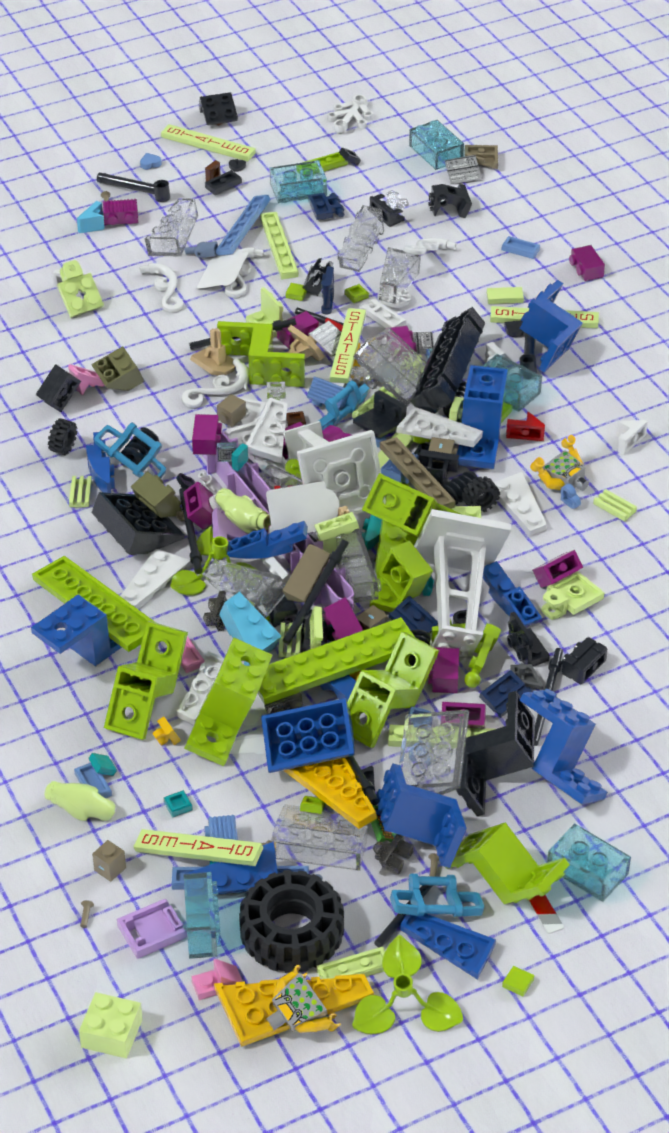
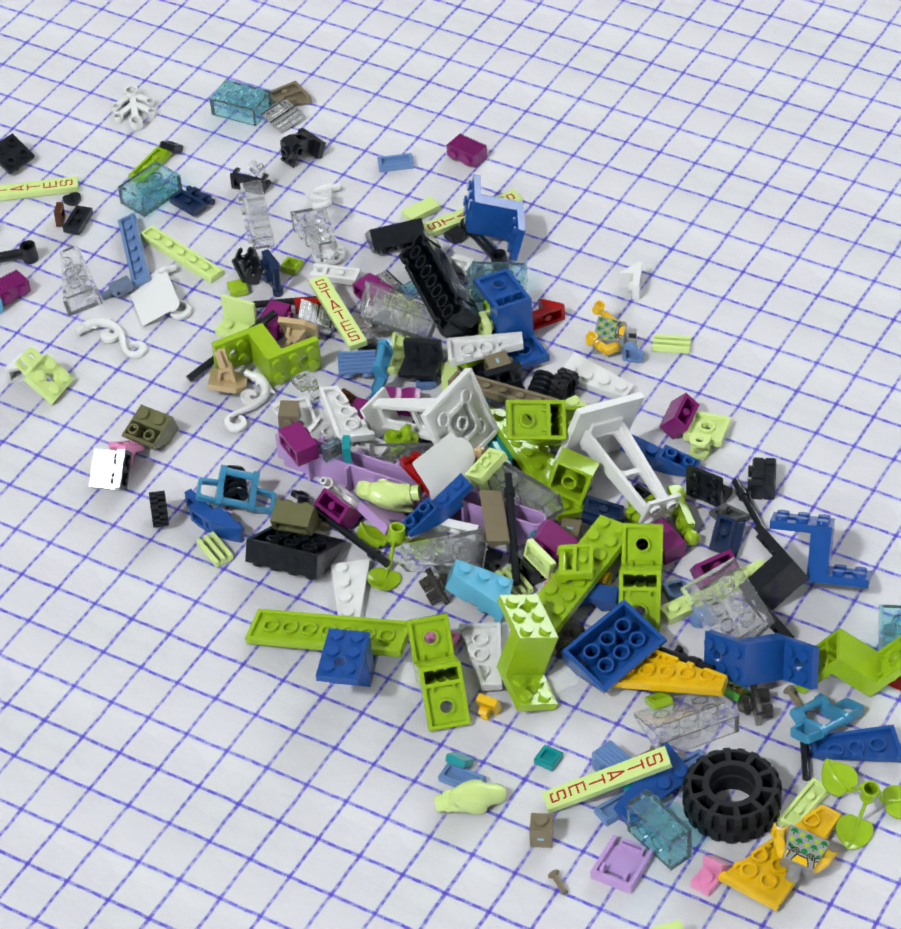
camera: 30 degrees left, 0 degrees up
(341, 649) = (581, 562): none -> lime plate
(454, 304) = (393, 235): none -> black slope

